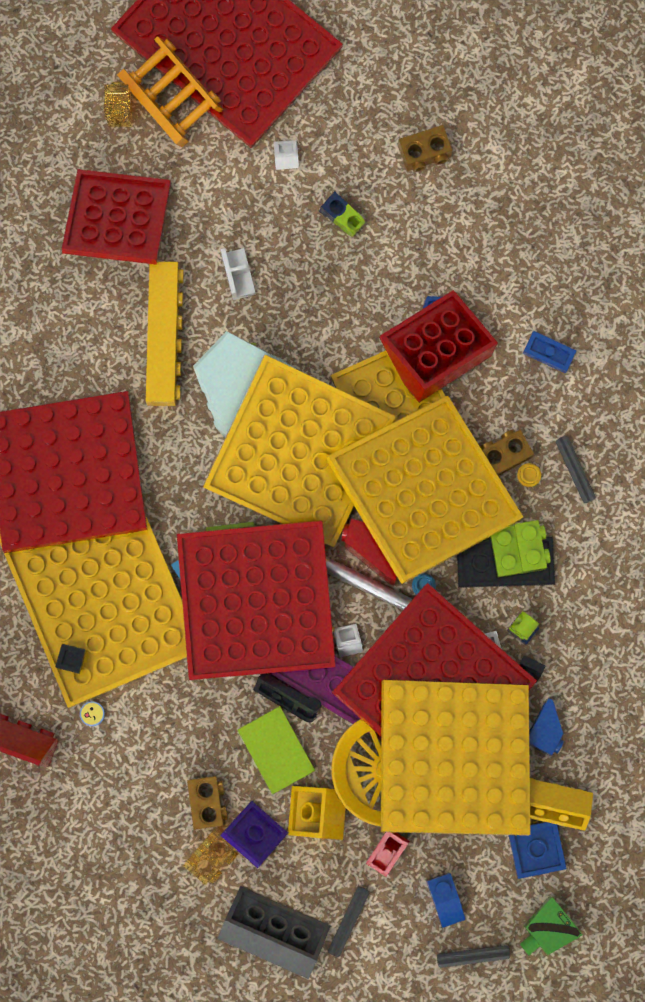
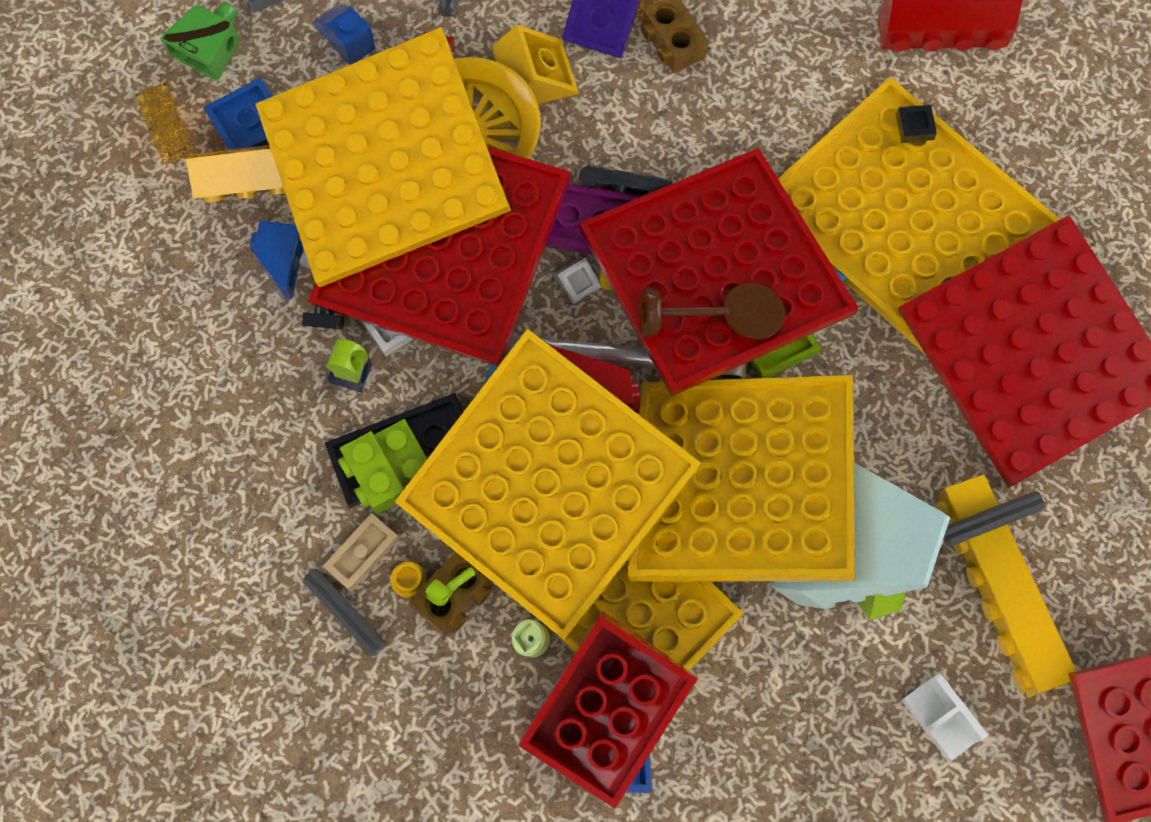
camera: 160 degrees right, 10 degrees down
(92, 713) = (856, 86): light yellow tile -> none
(156, 369) = (993, 518): none -> dark grey axle
(249, 554) = (748, 310): none -> reddish brown piece
(276, 750) = (614, 122): lime tile -> none
(467, 409) = (530, 638): none -> yellowish green tile
(513, 449) = (440, 593): none -> lime hand
(549, 352) = (437, 772): blue plate -> none
(553, 501) = (361, 552): none -> tan plate
(597, 864) = (165, 123): none -> clear yellow brick

